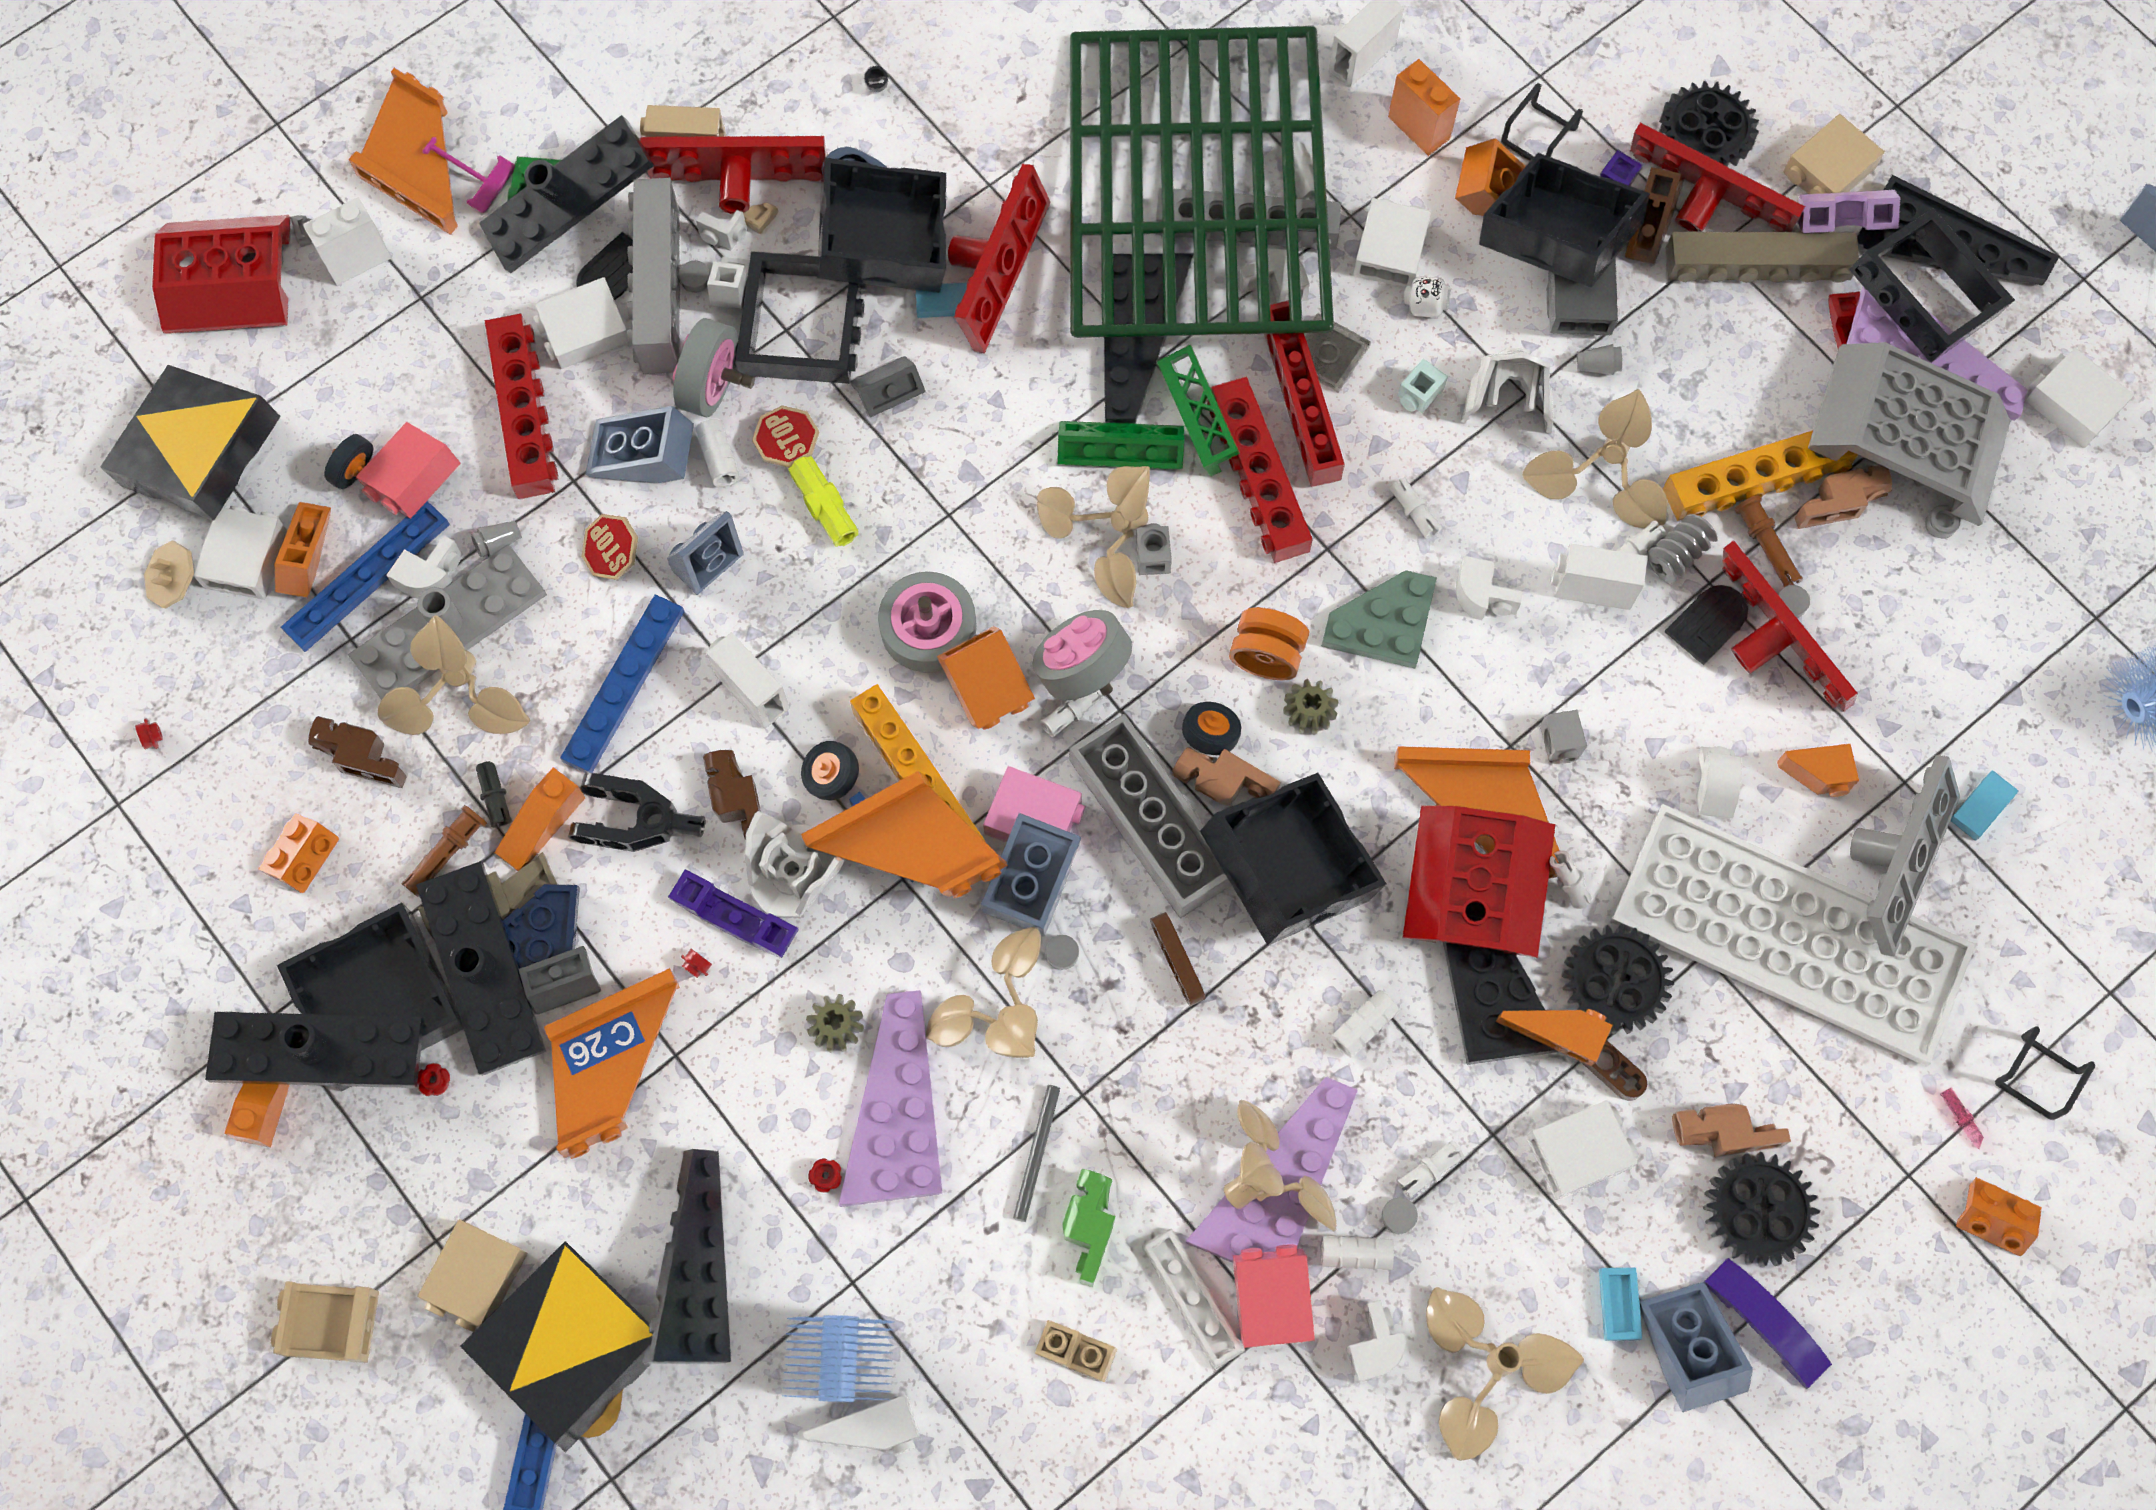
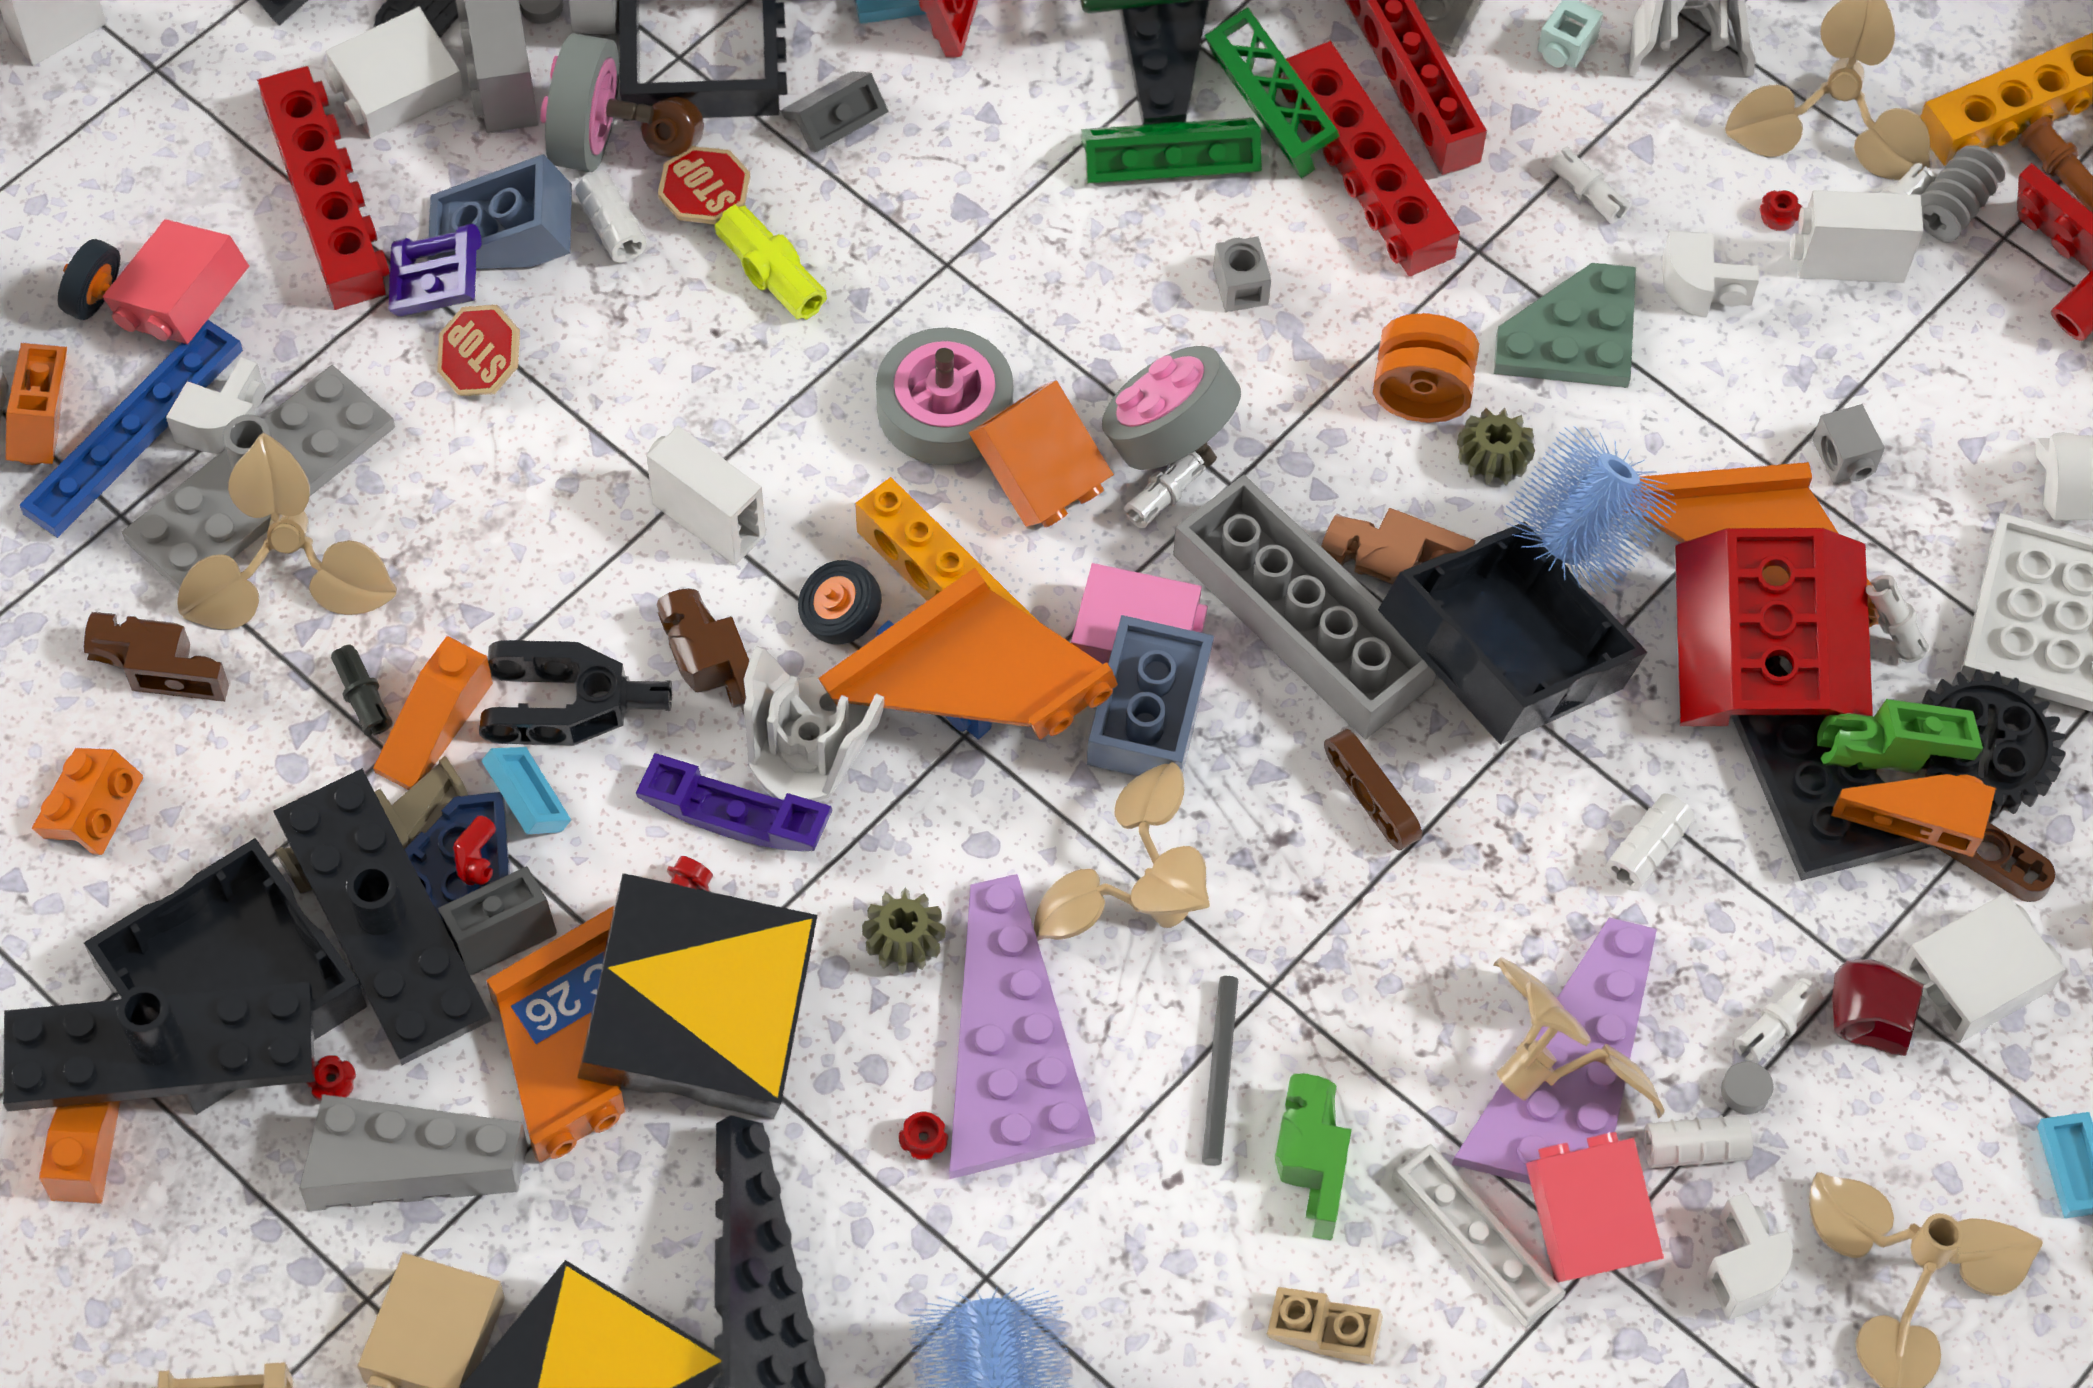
camera: 10 degrees left, 10 degrees down
(453, 839) = (312, 755): dark orange pin -> none
(463, 1142) = (407, 1153): none -> light grey wedge
(495, 537) = (307, 359): light grey cone -> none
(544, 930) = (467, 852): none -> red arm
(586, 491) = (437, 281): none -> dark purple plate
(594, 884) = (526, 790): none -> medium azure tile
(622, 684) = (523, 528): blue plate -> none
(683, 1058) = (698, 996): none -> tile
(706, 553) = (620, 339): sand blue slope -> none
(770, 389) = (674, 127): none -> reddish brown head
(1062, 952) = (1208, 802): light grey tile -> none
(1129, 491) = (1204, 188): tan plant -> none
(1211, 728) = (1364, 487): black wheel -> none
(1362, 772) = (1590, 509): none -> light blue piece
(1499, 1168) = (1875, 1005): none -> dark red piece
(1544, 548) = (1776, 217): none -> red plate
(1554, 973) = (1899, 736): none -> bright green plate
(1709, 622) = (2014, 284): black window -> none

